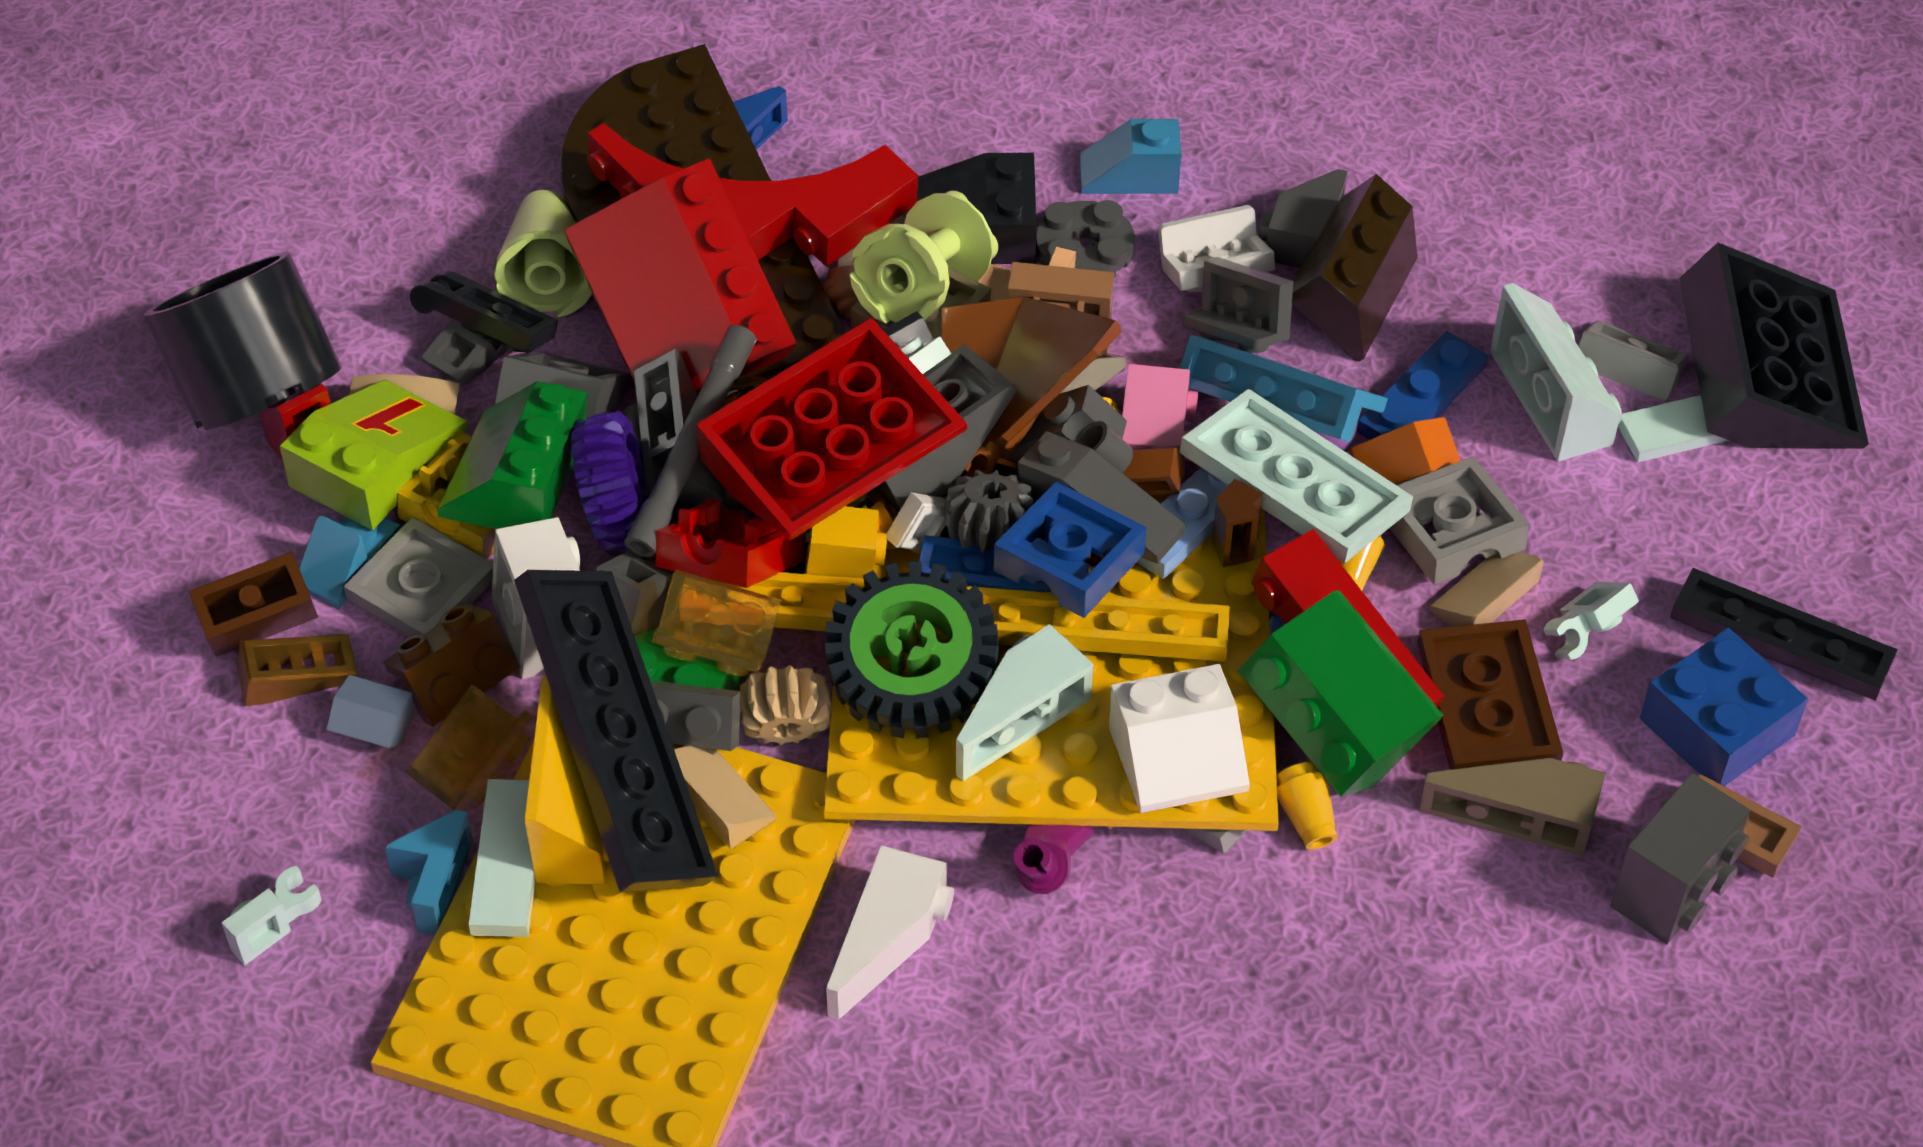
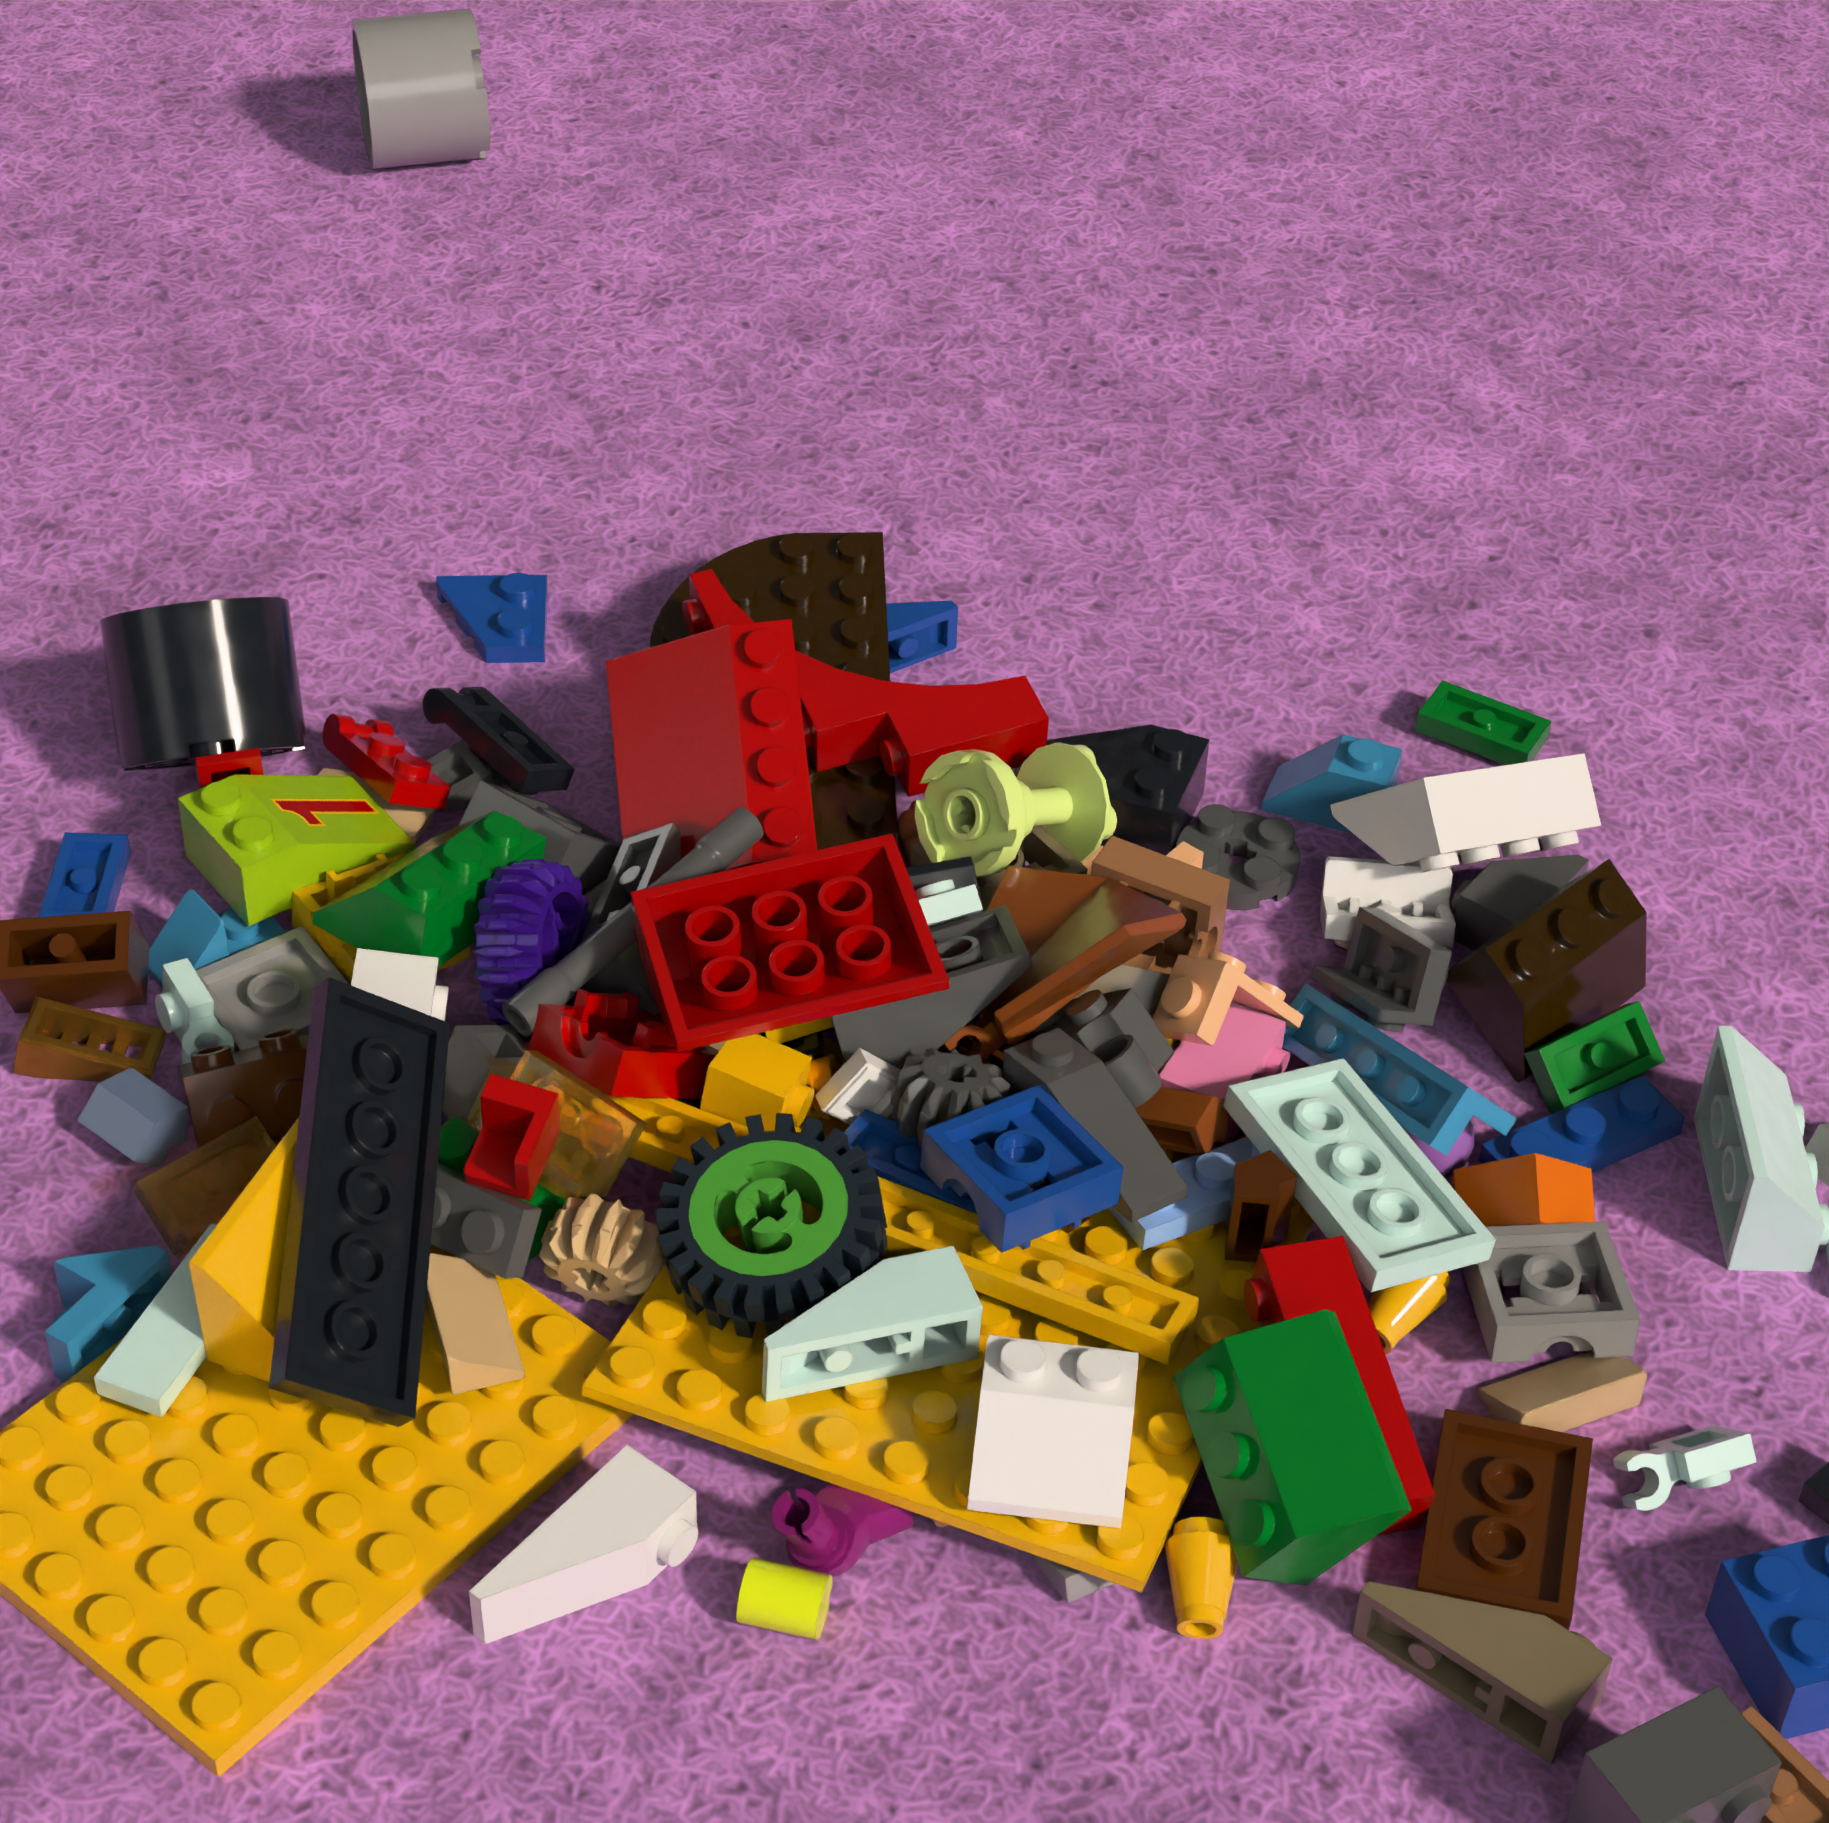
camera: 20 degrees right, 10 degrees down
(215, 532) = (87, 874): none -> blue plate
(366, 615) = (189, 1009): none -> light aqua plate
(402, 358) = (384, 762): none -> red plate
(415, 195) = (500, 613): none -> blue wing
(537, 259) = (573, 707): yellowish green cone -> none
(699, 645) = (515, 1137): none -> red panel
(1036, 917) = (784, 1598): none -> neon yellow piece
(1130, 370) = (1201, 995): none -> light nougat bracket
(1217, 75) = (1482, 725): none -> green plate
(1252, 158) = (1476, 813): none -> white slope
(1409, 327) = (1595, 1057): none -> green plate

